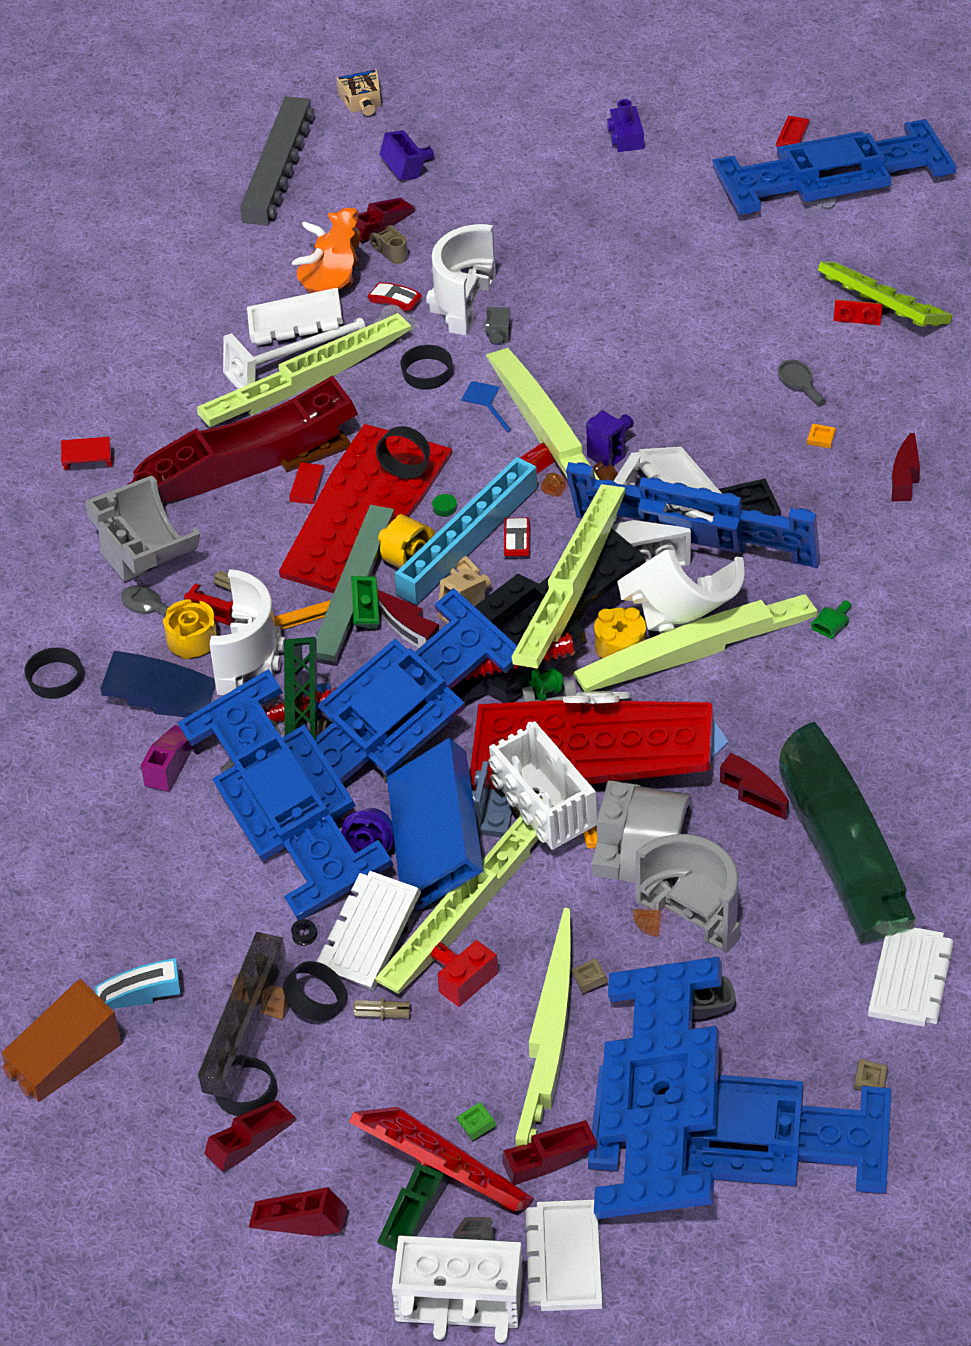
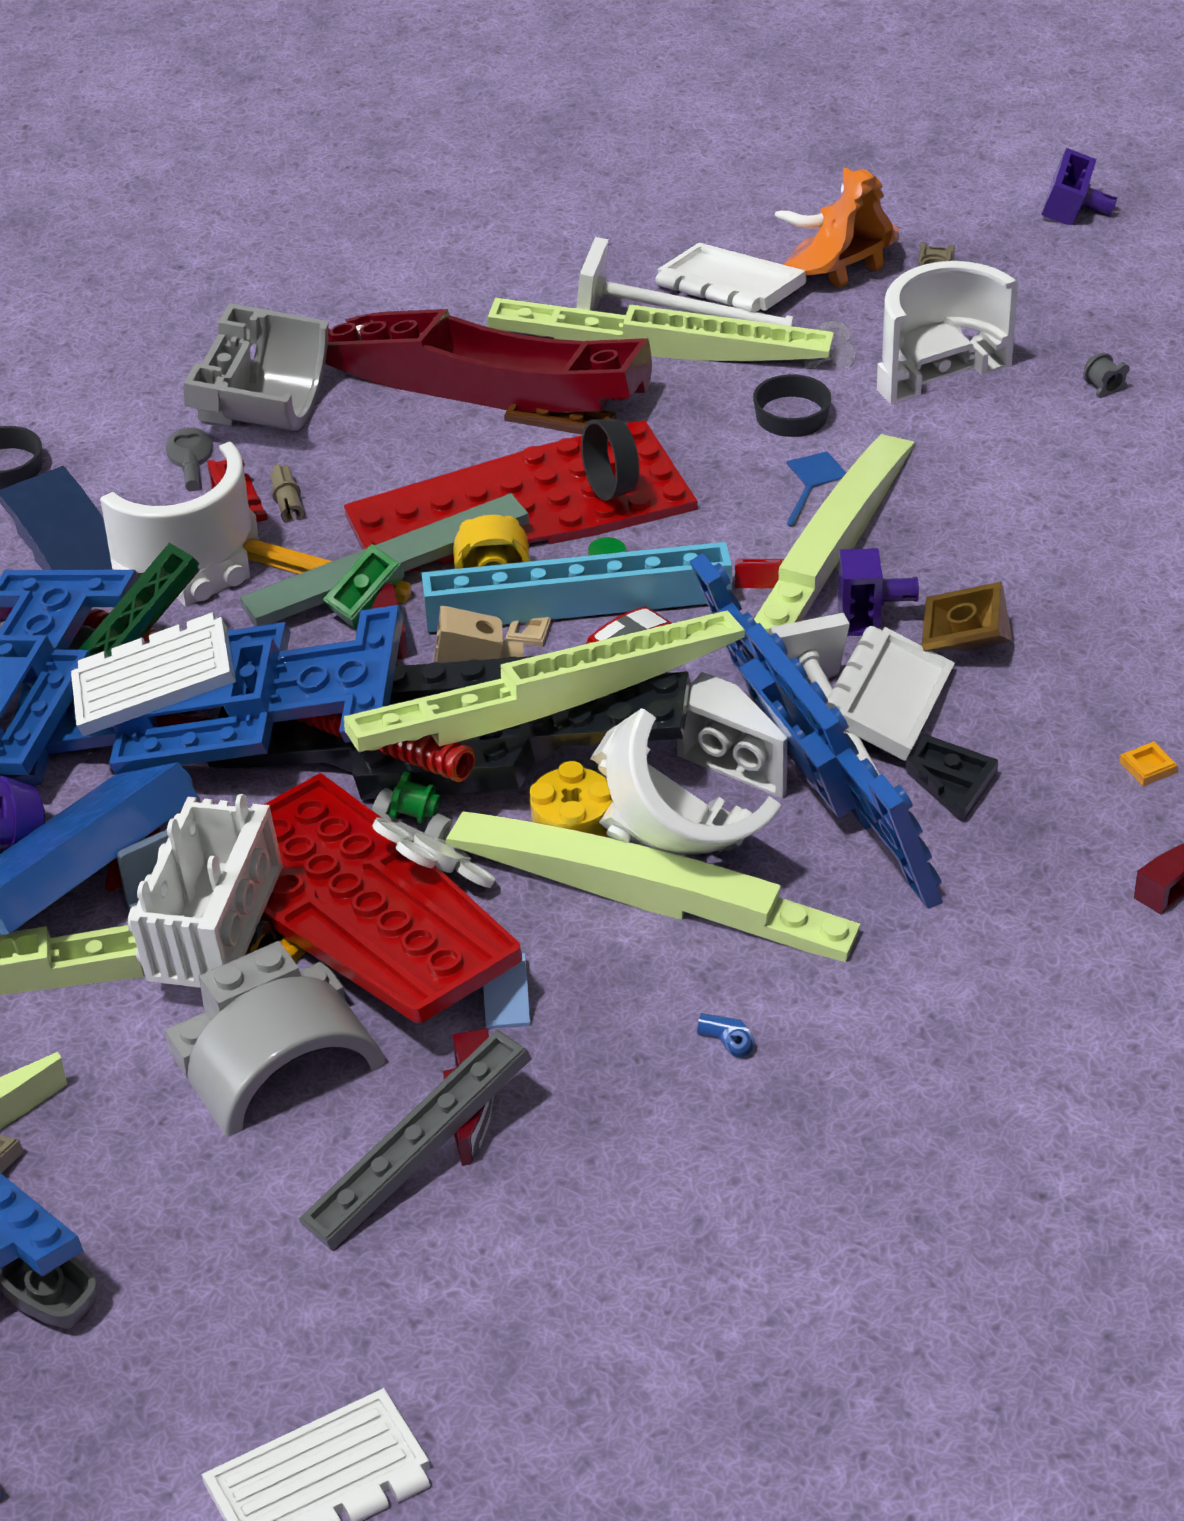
camera: 45 degrees right, 5 degrees down
(86, 451) = (342, 279): red hinge -> none
(189, 628) = (168, 483): yellow brick -> none
(277, 161) = (934, 124): dark grey brick -> none
(306, 483) = (504, 440): red tile -> none
(360, 91) = (1123, 109): tan torso -> none
(365, 710) = (152, 674): none -> white hinge
(381, 215) = (965, 231): dark red slope -> none
(394, 295) = (864, 318): slope -> none
(498, 324) = (931, 410): dark grey brick -> none
(553, 251) = (1105, 374): none -> dark grey brick
(553, 484) = (749, 602): clear orange bush -> none
(647, 920) = (142, 1150): clear orange tile -> none
(667, 419) = (966, 619): none -> pearl gold slope
(705, 886) = (213, 1167): light grey piece -> none
(767, 819) = (414, 1139): none -> dark grey tile
(816, 680) = (730, 1031): none -> blue arm
(832, 620) = (853, 977): green piece -> none
(845, 835) = (472, 1237): clear green slope -> none

